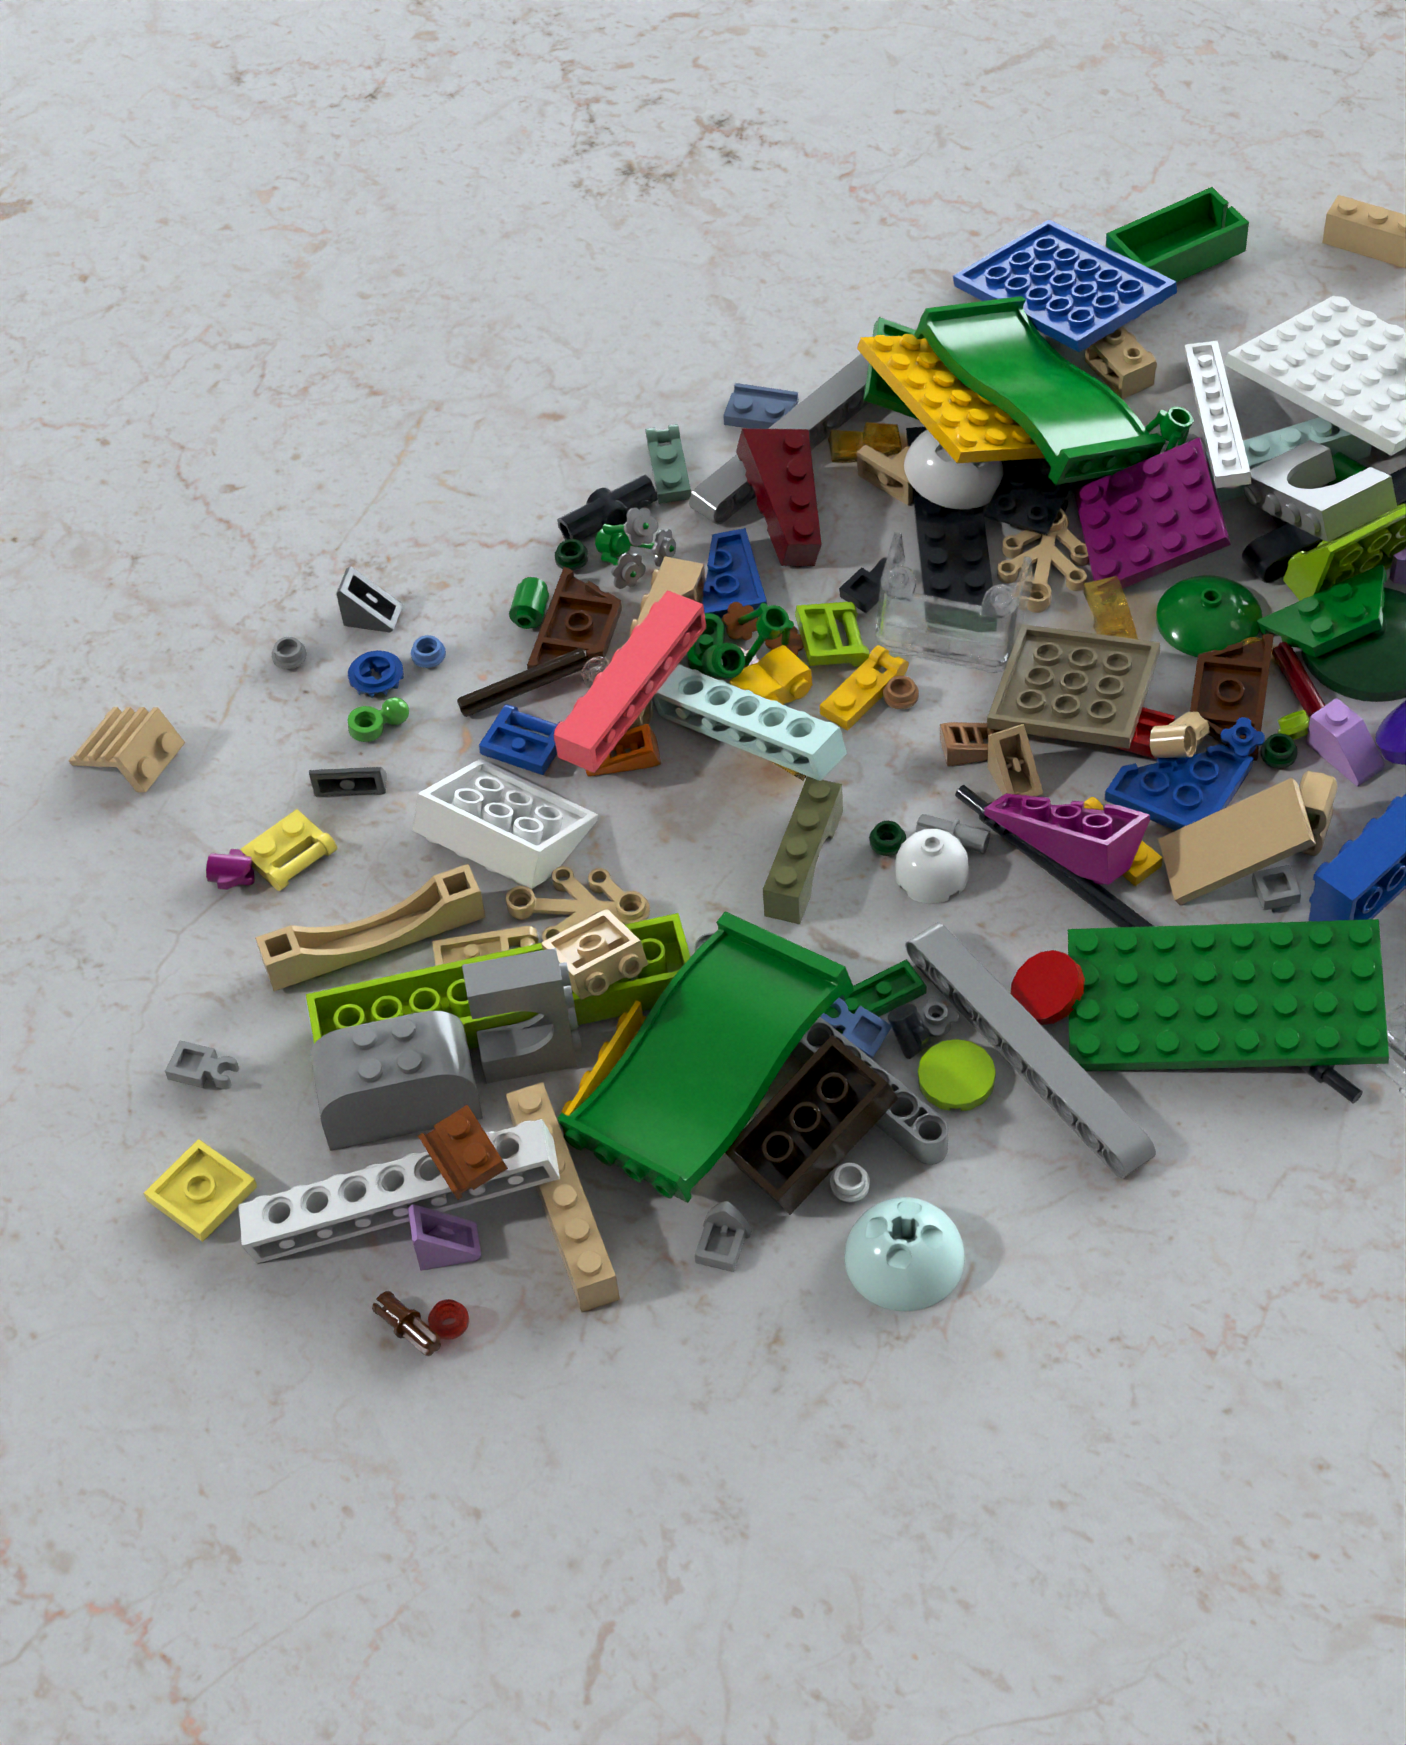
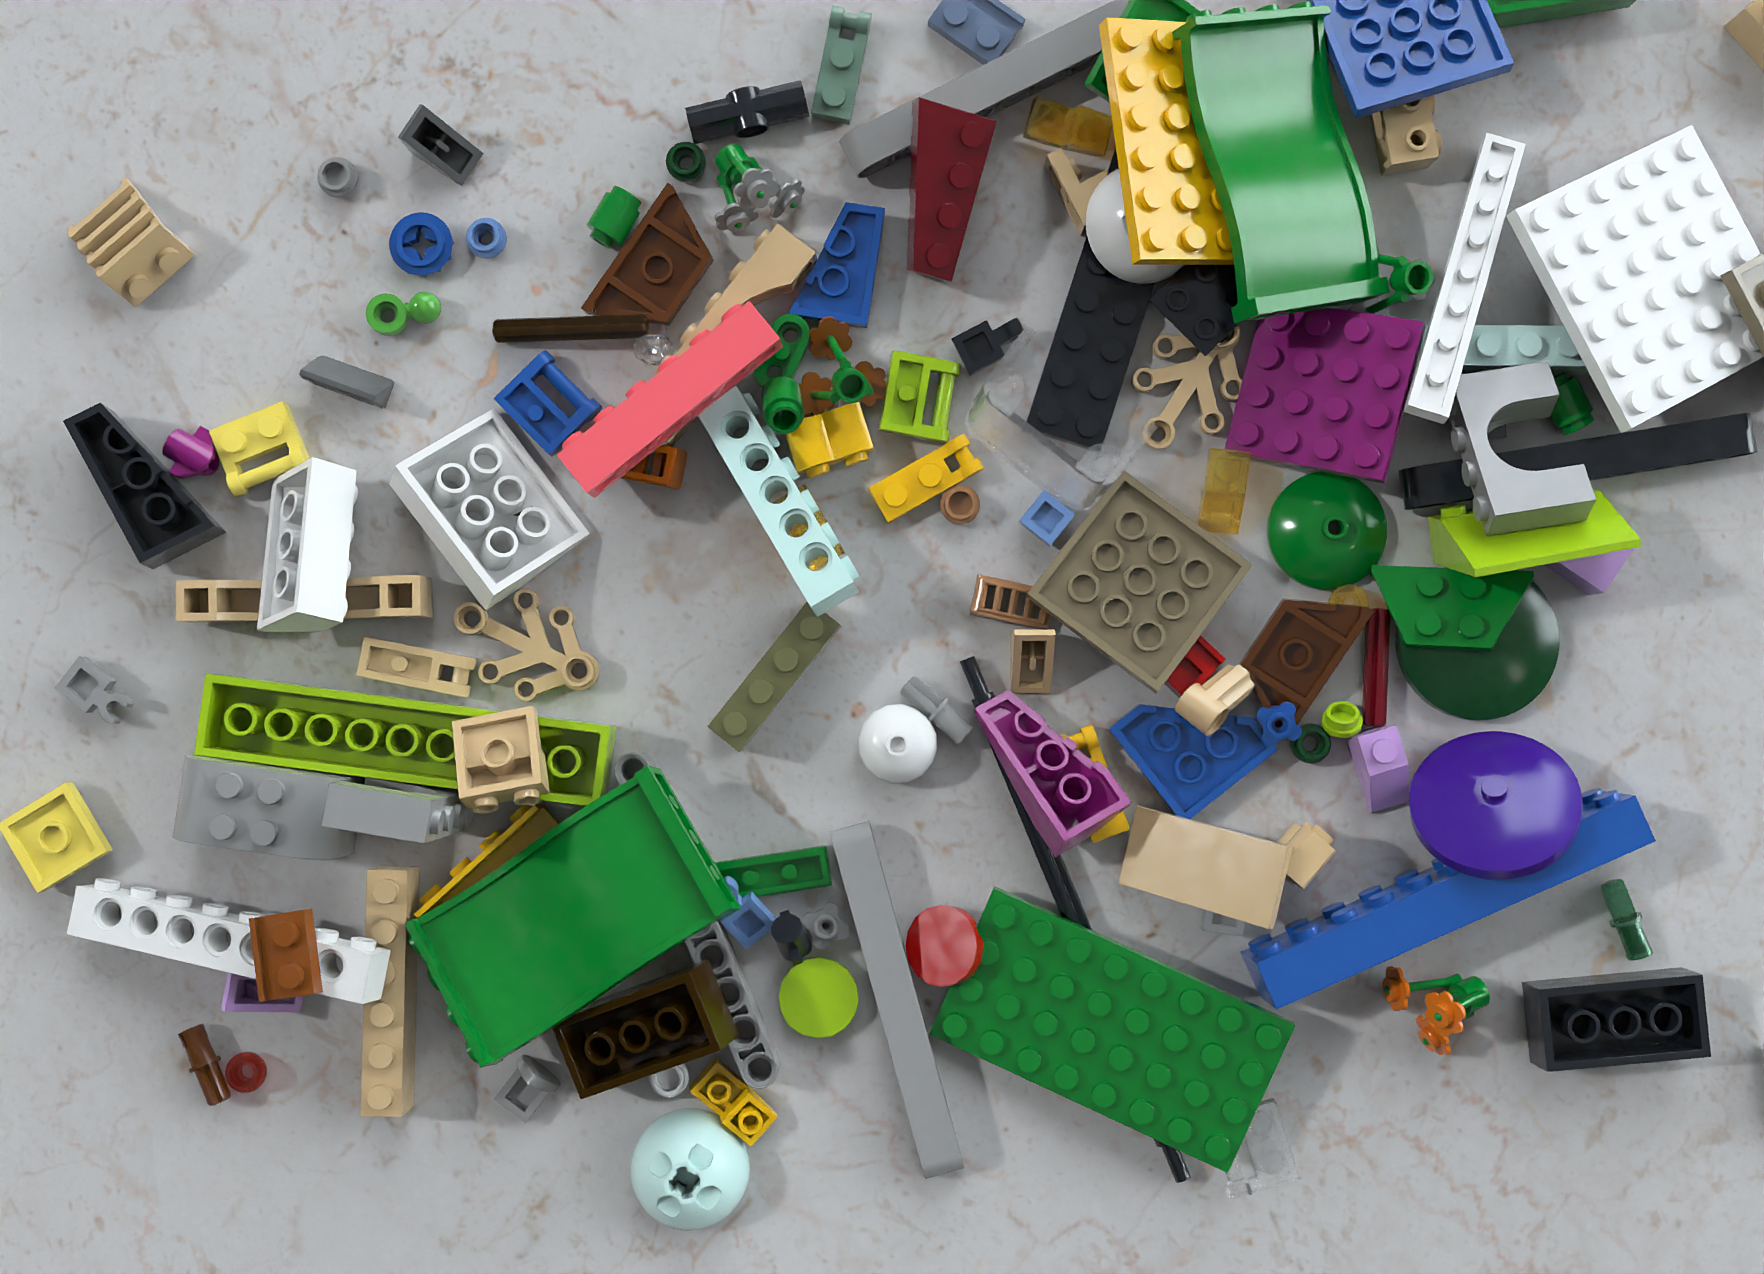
camera: 20 degrees right, 35 degrees up
(196, 900) = (145, 498): none -> black wedge
(360, 886) = (308, 548): none -> white slope
(887, 831) = (855, 689): dark green plate -> none
(910, 1179) = (733, 1101): none -> yellow slope
(976, 676) = (1046, 518): none -> medium blue plate

